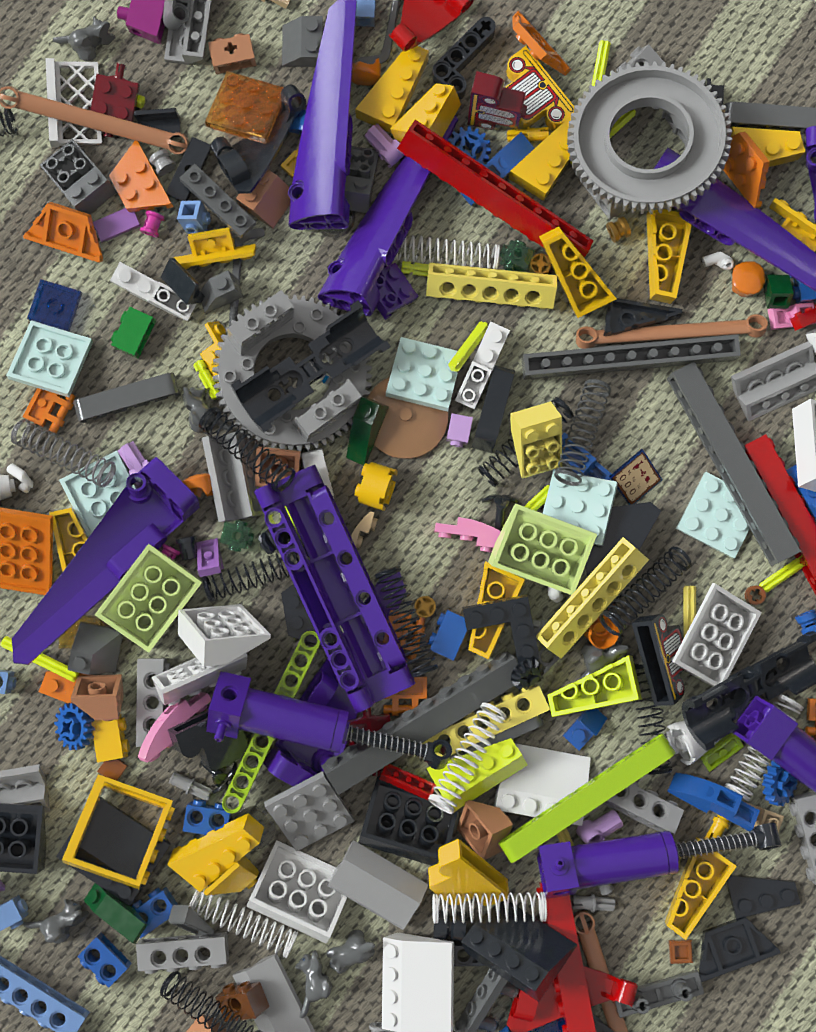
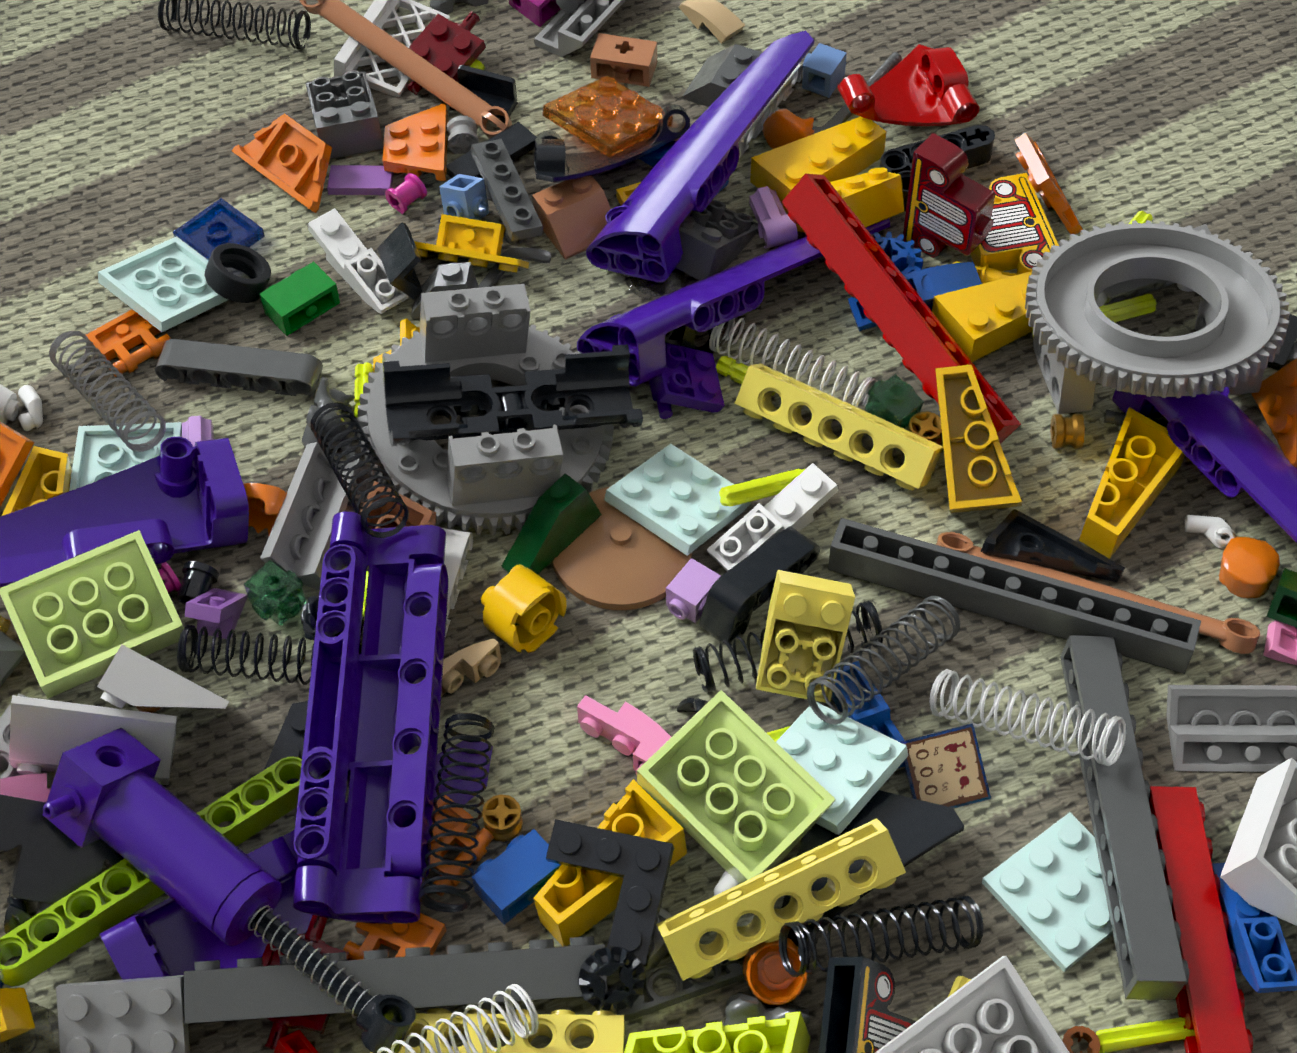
camera: 25 degrees right, 30 degrees down
(83, 346) = (241, 259): none -> black tyre
(619, 426) = (956, 684): none -> white piece

